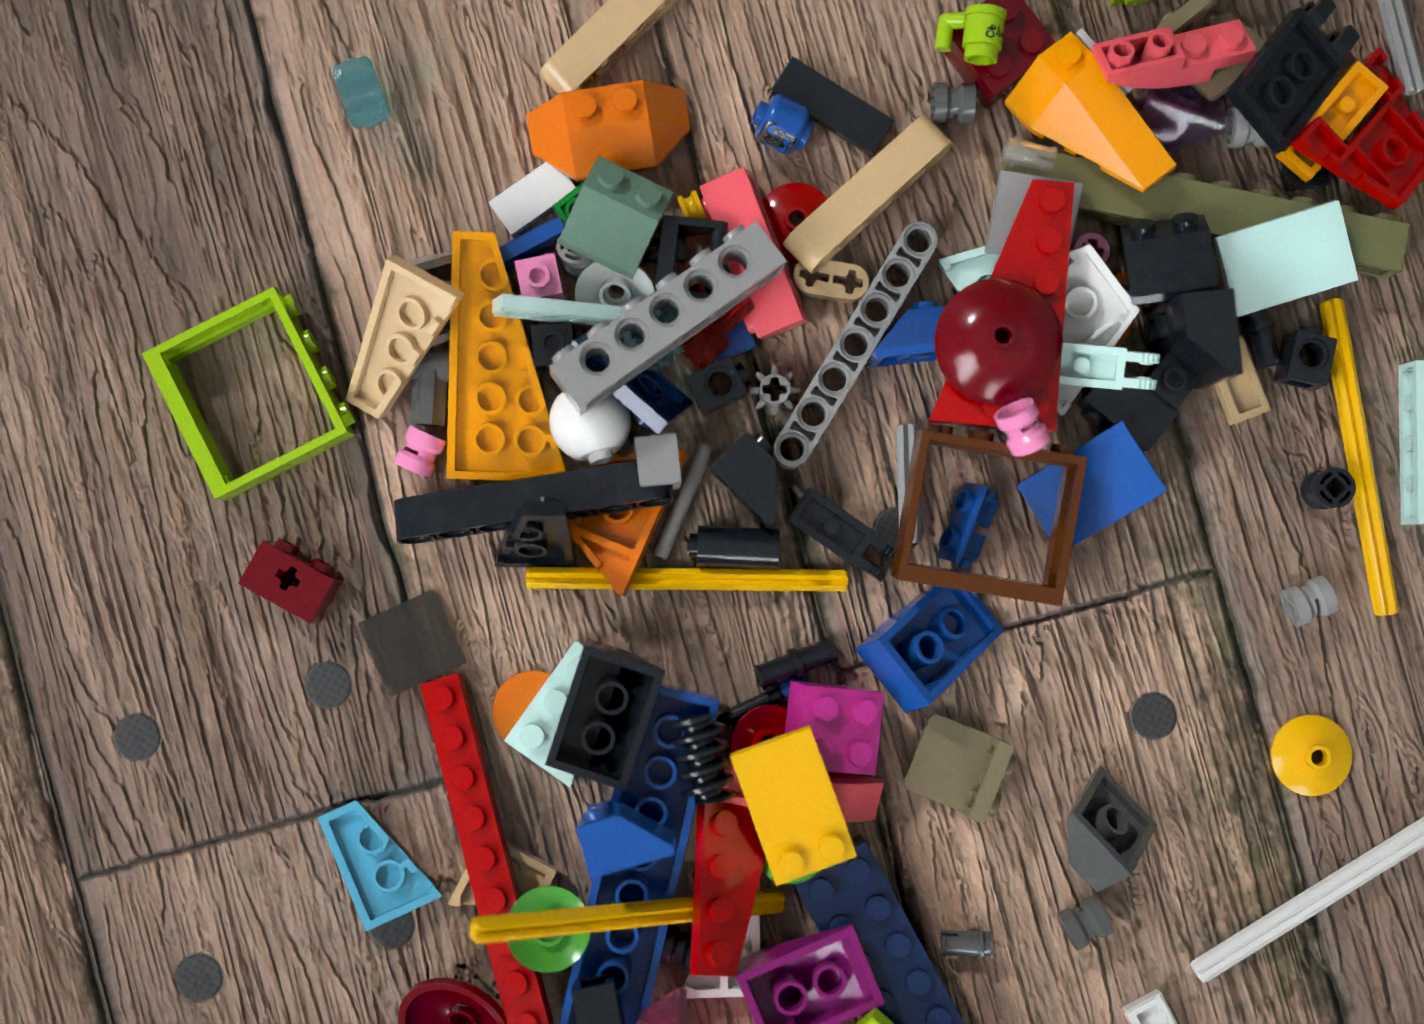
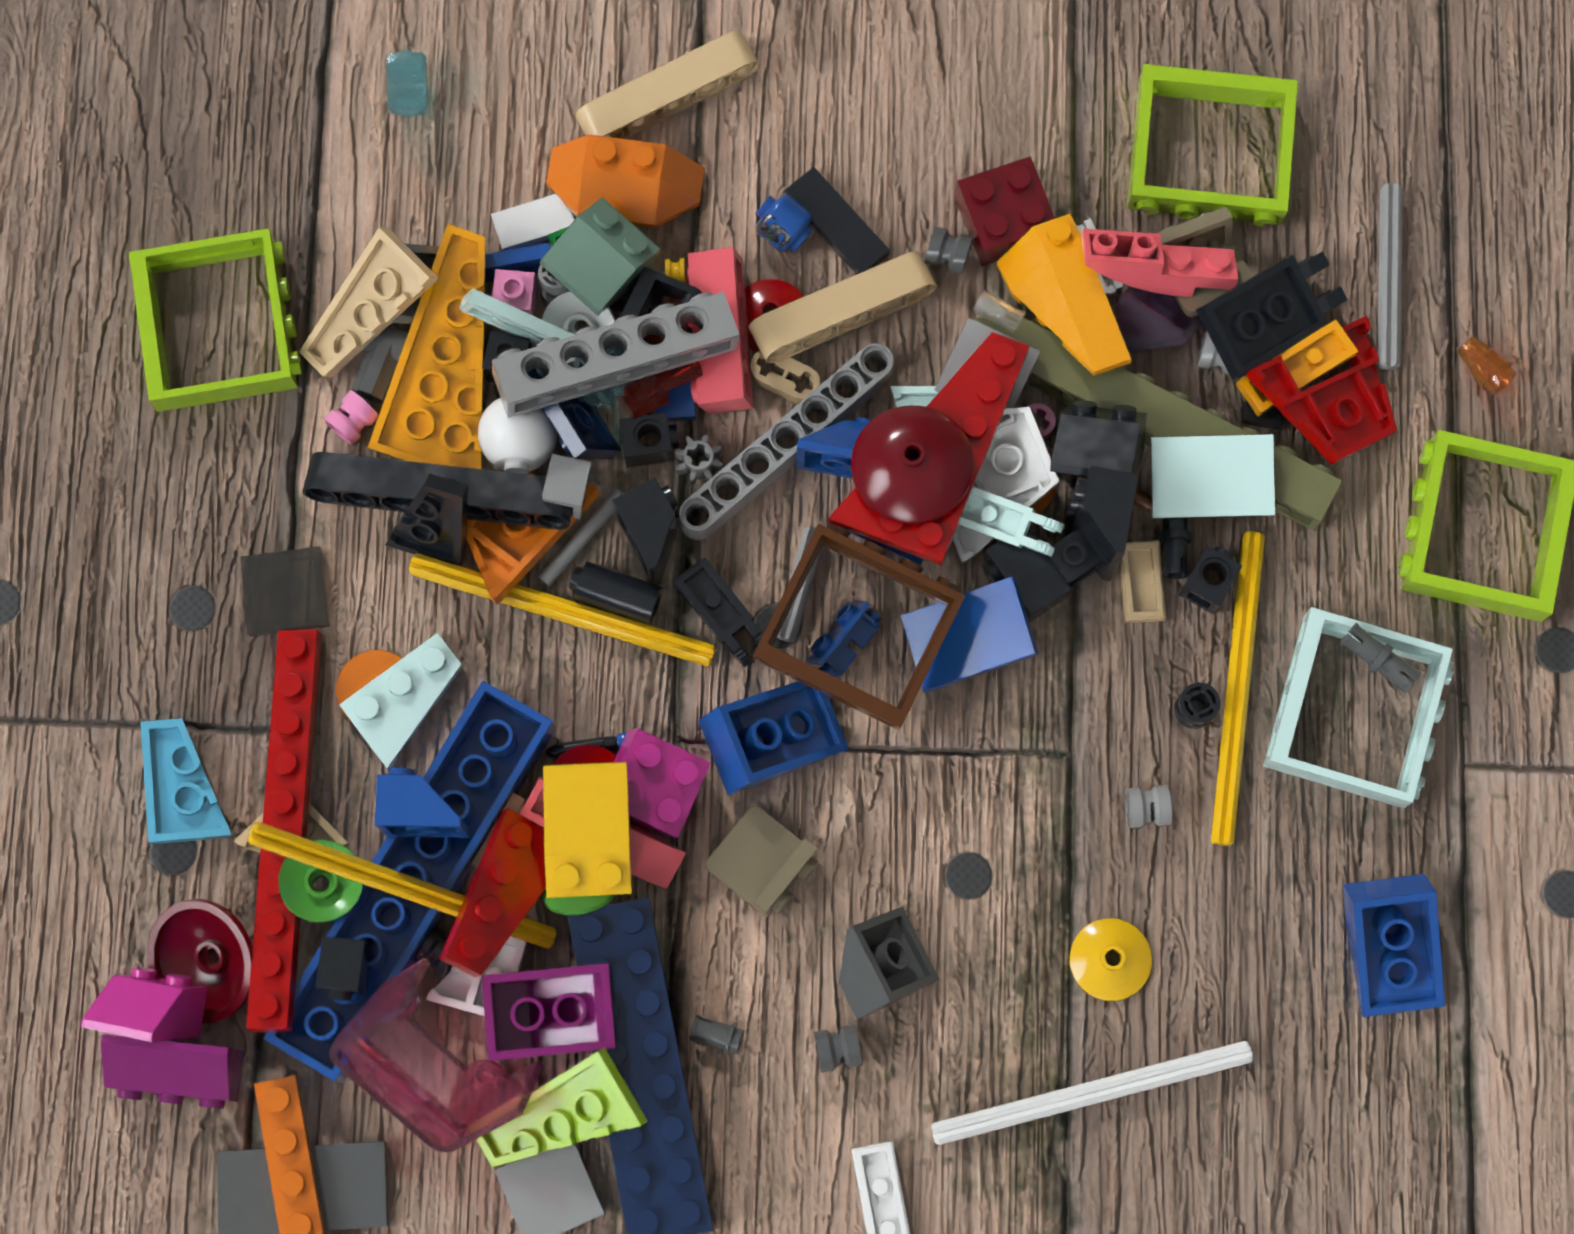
camera: 20 degrees right, 10 degrees down
(268, 579) = (177, 481): dark red brick -> none
(605, 715) = (439, 698): black slope -> none
(703, 758) = (516, 760): black piece -> none
(796, 663) = (638, 716): black pin -> none
(981, 36) = (985, 190): lime piece -> none
(1022, 427) = (909, 553): bright pink wheel -> none

